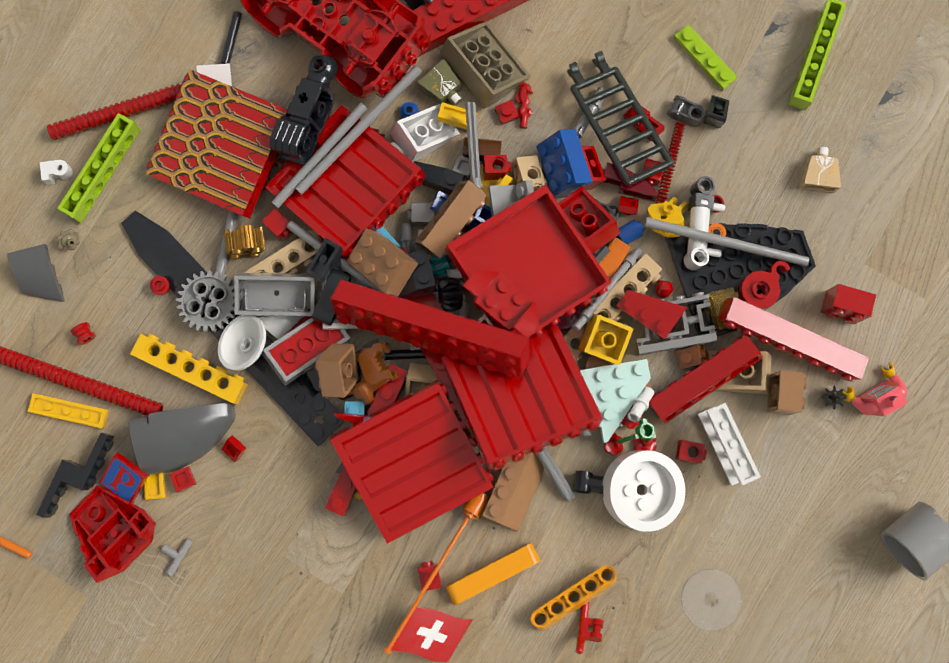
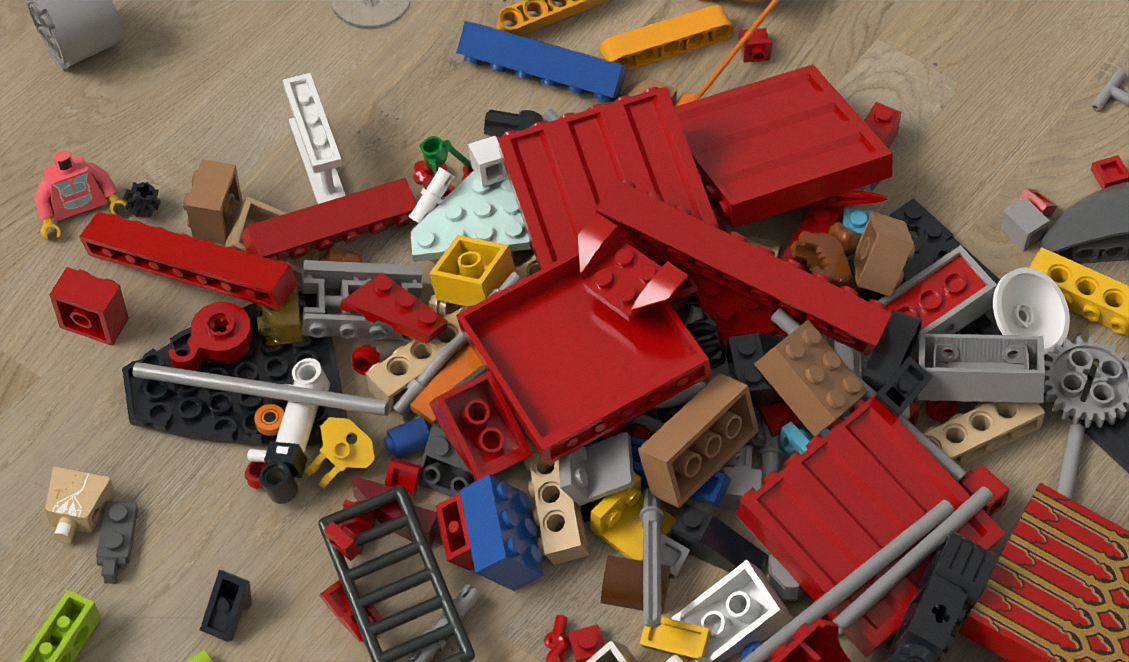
camera: 175 degrees left, 25 degrees down
(244, 242) = (1035, 459): pearl gold brick -> none
(244, 429) = (1024, 224): none -> light grey brick
(491, 160) = (608, 530): red brick -> none
(580, 541) = (542, 60): none -> blue brick
(608, 430) = (487, 161): none -> white brick
(657, 141) = (342, 540): none -> red plate
(662, 494) = (444, 83): white brick -> none
(679, 137) = (317, 547): red piece -> none
(682, 452) = (366, 152): red brick -> none
(685, 110) = (282, 618): dark grey piece -> none
(791, 155) = (116, 538): none -> dark grey hinge

